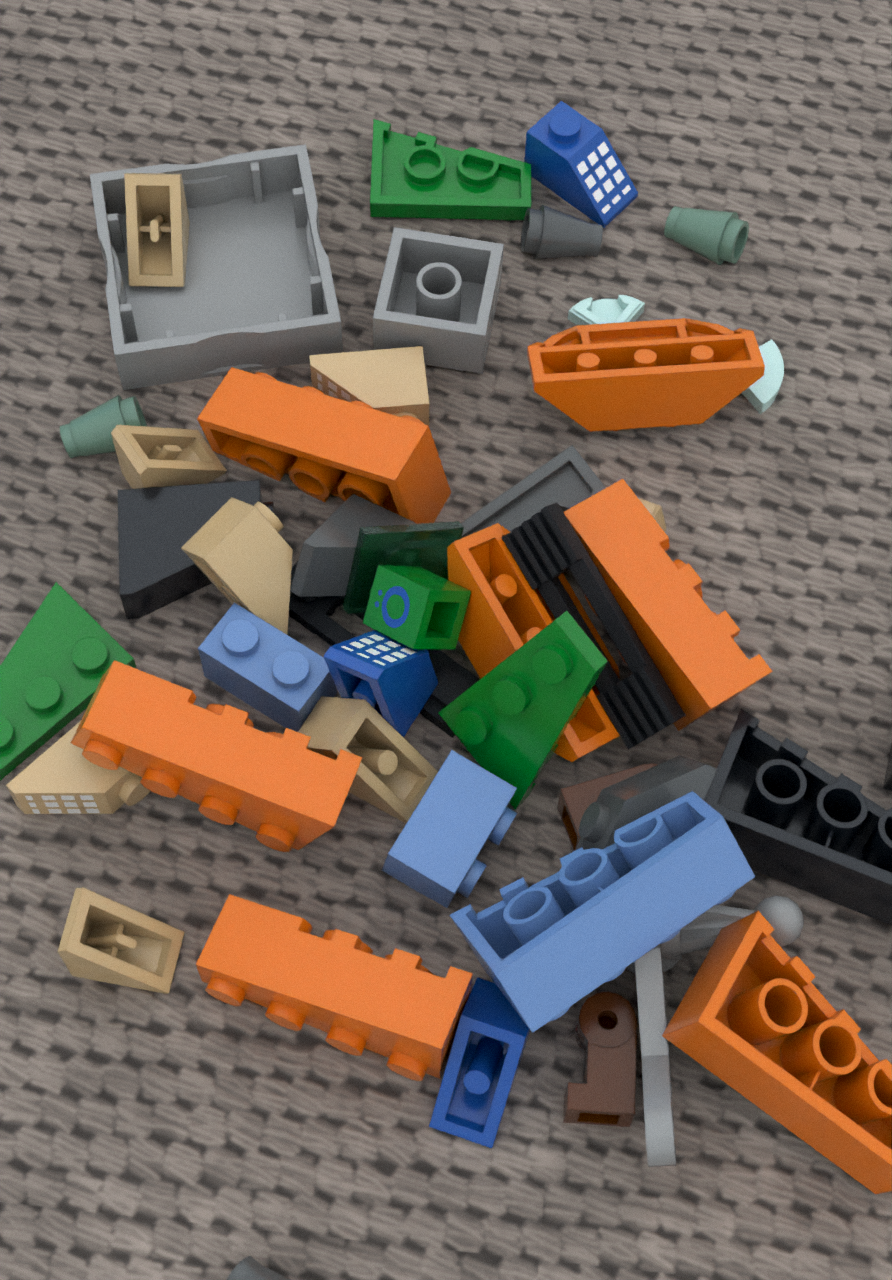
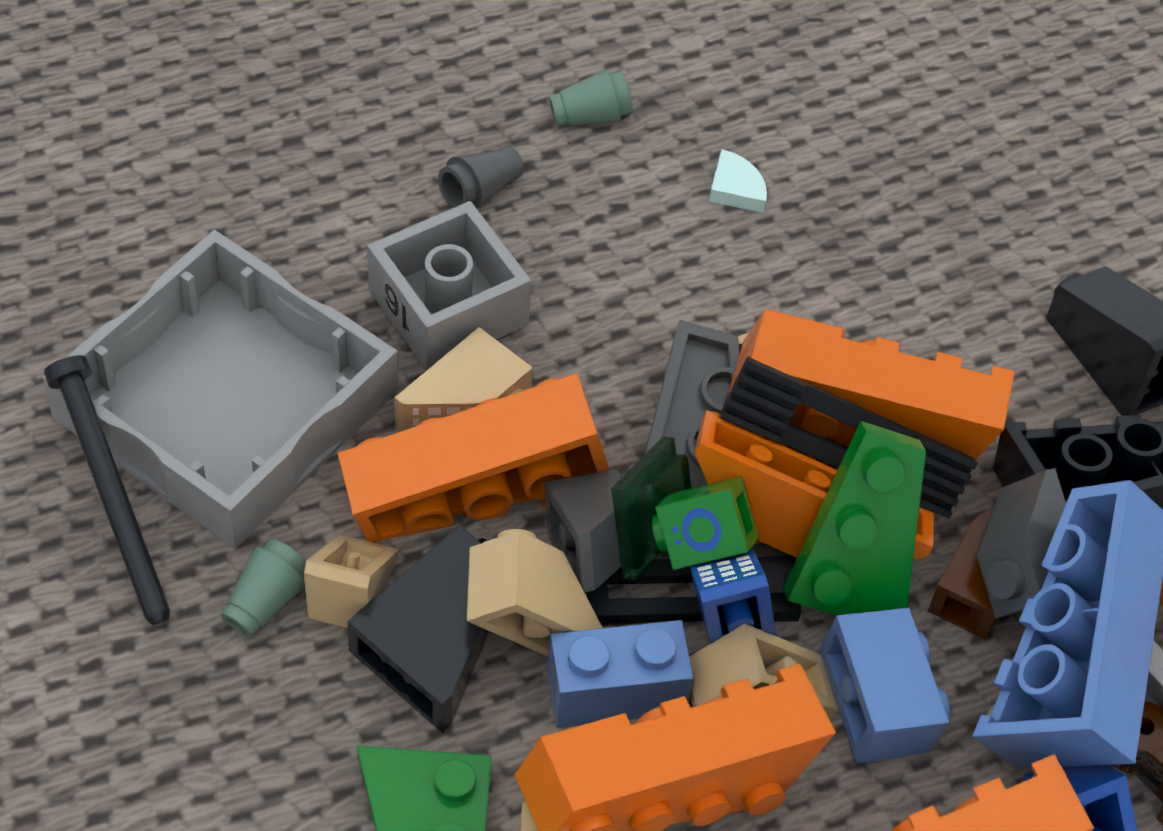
camera: 45 degrees left, 10 degrees down
(96, 184) = (70, 377): none -> black bar
(156, 229) = (144, 385): tan slope -> none
(435, 181) = (335, 199): green wing -> none
(578, 164) = (441, 111): blue slope -> none
(606, 310) = (578, 216): light aqua tile -> none
(644, 372) = (669, 227): orange wedge -> none

